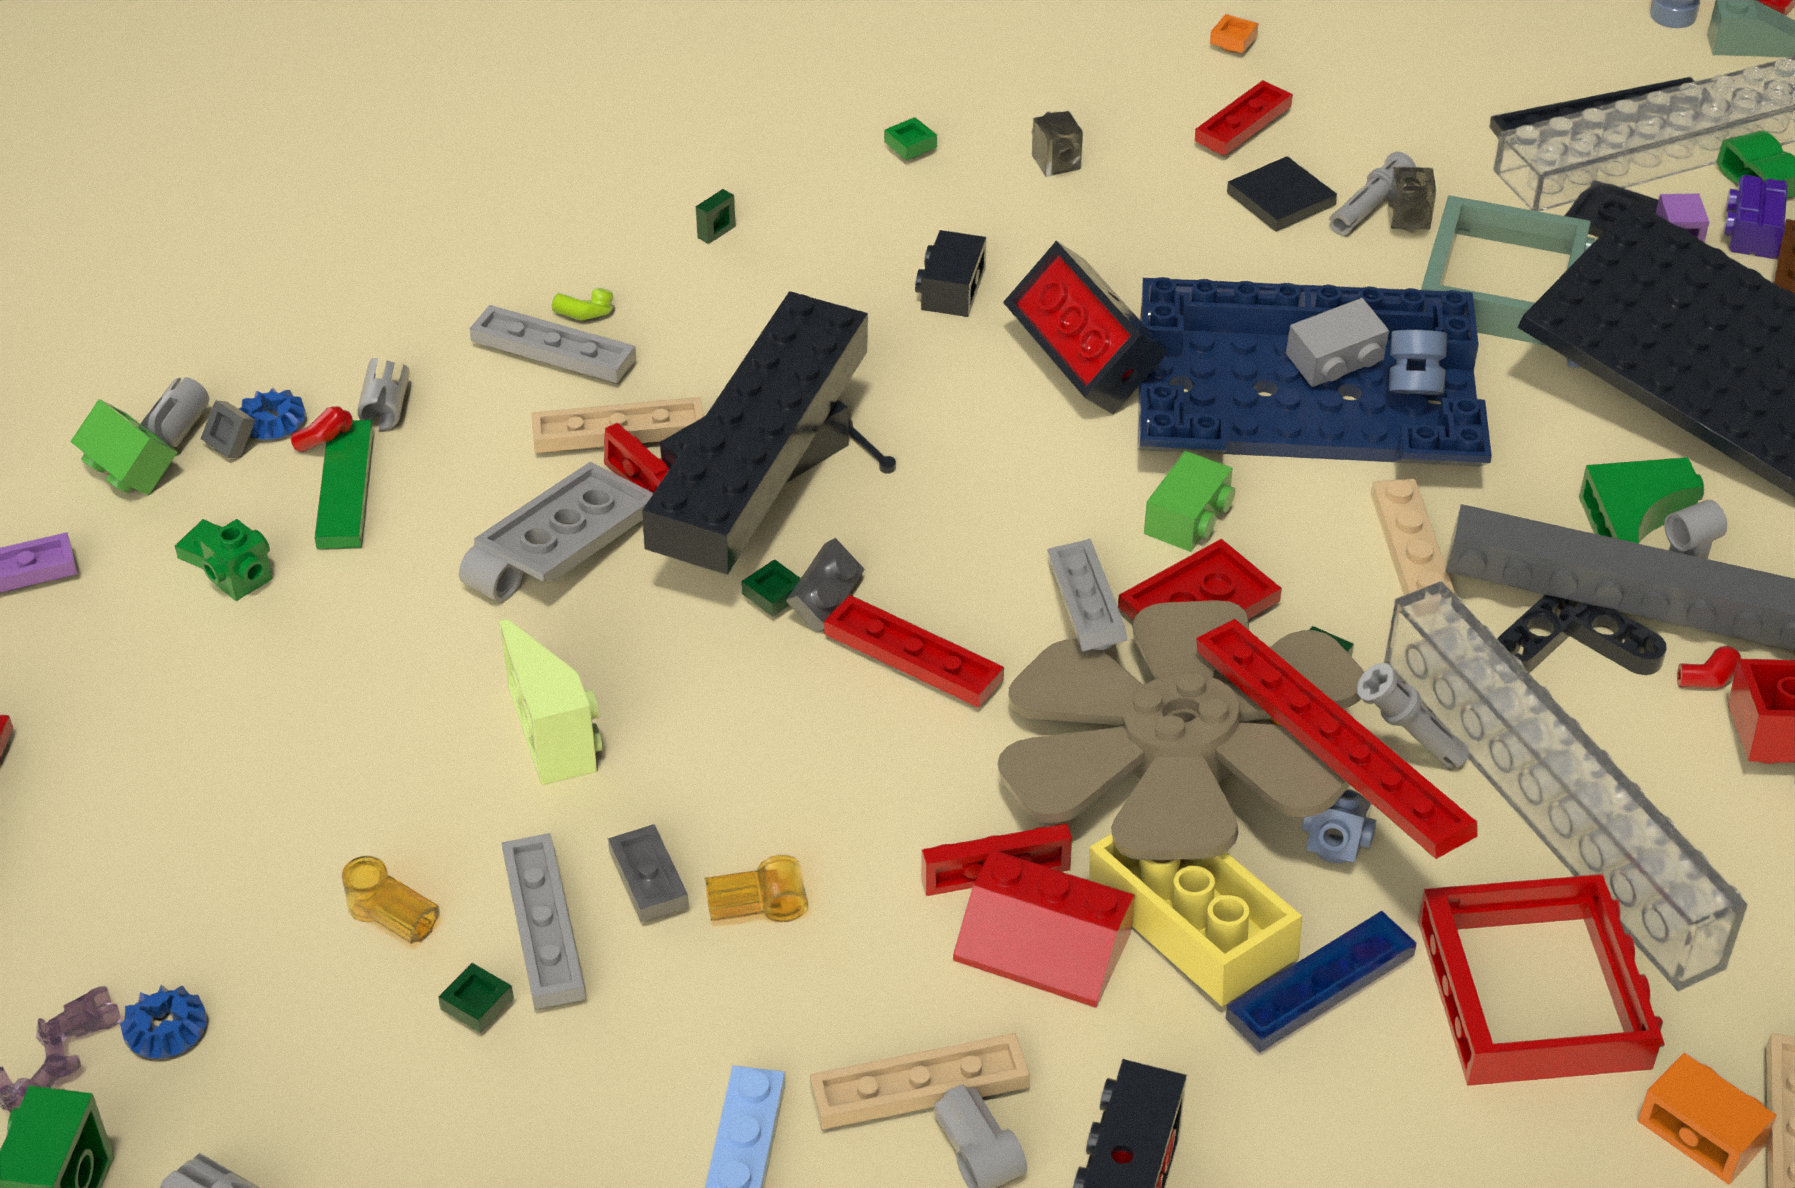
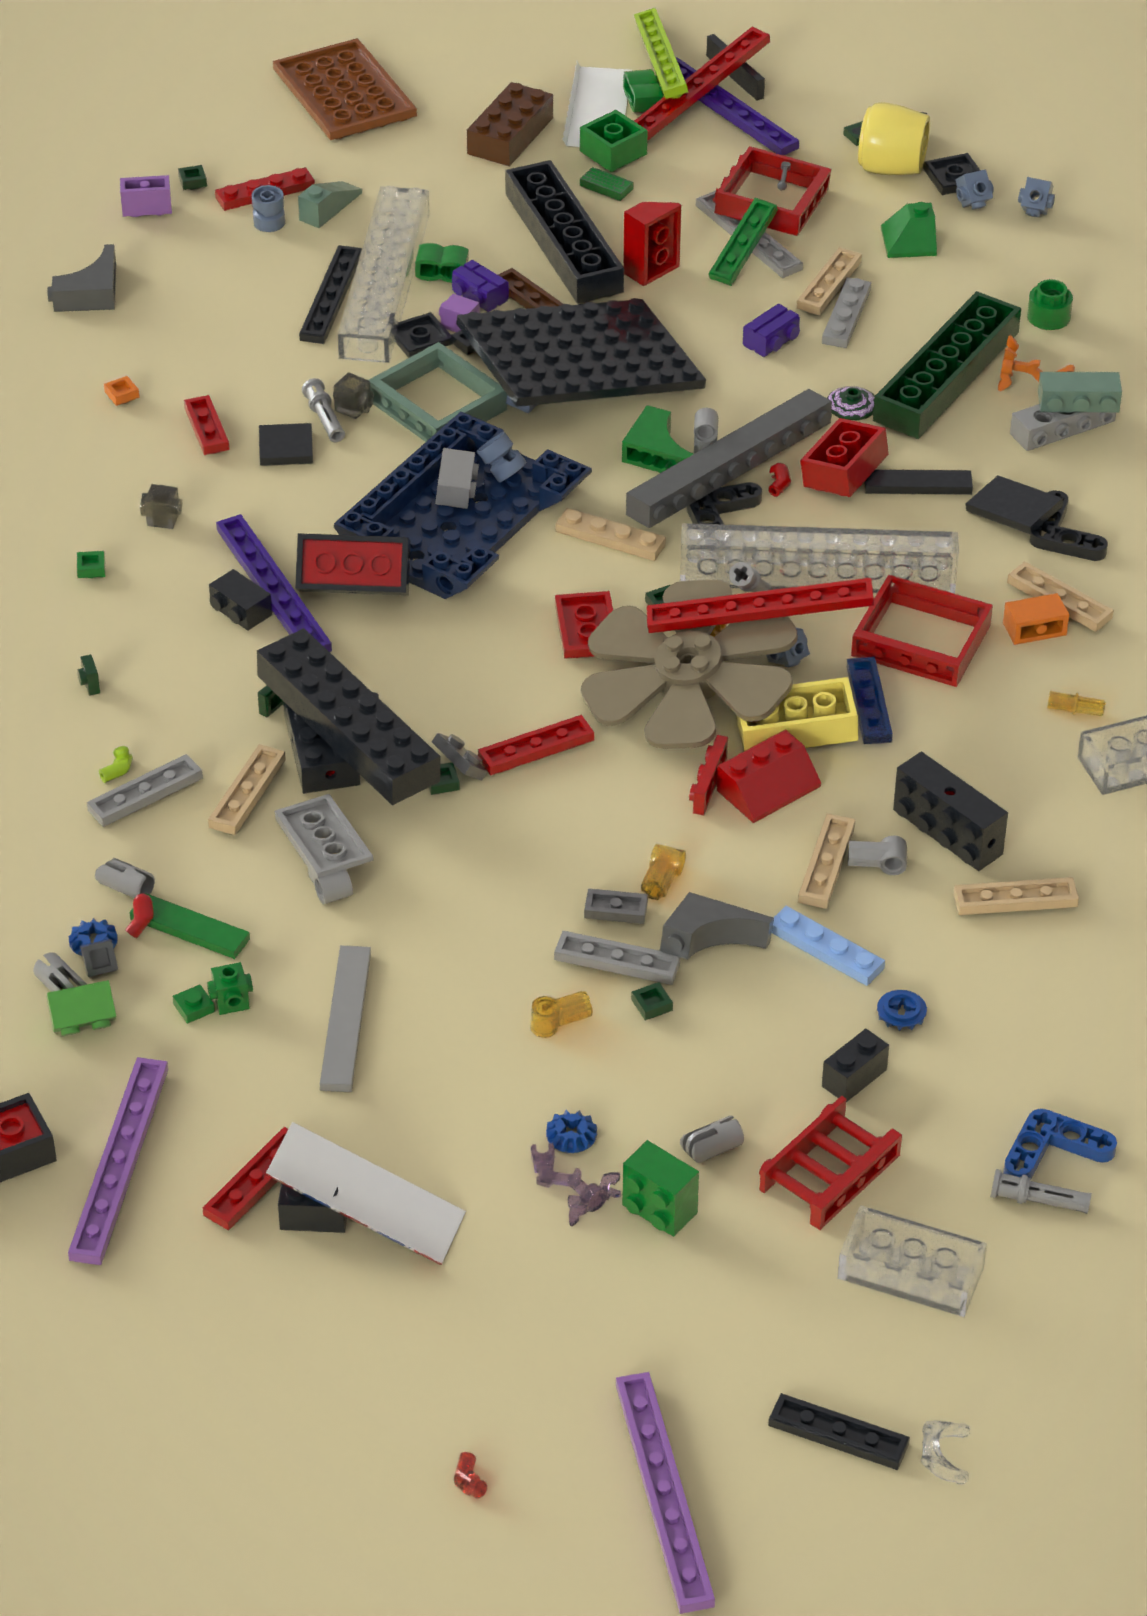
camera: 60 degrees left, 0 degrees up
(259, 693) = (345, 1019): none -> light grey tile
(550, 707) = (470, 893): yellowish green slope -> none
(631, 459) = (288, 792): red hinge -> none
(660, 981) = (709, 922): none -> dark grey arch
(984, 311) = (267, 575): none -> dark purple plate
(1087, 595) = (560, 658): light grey plate -> none
(1189, 501) = (514, 594): bright green brick -> none

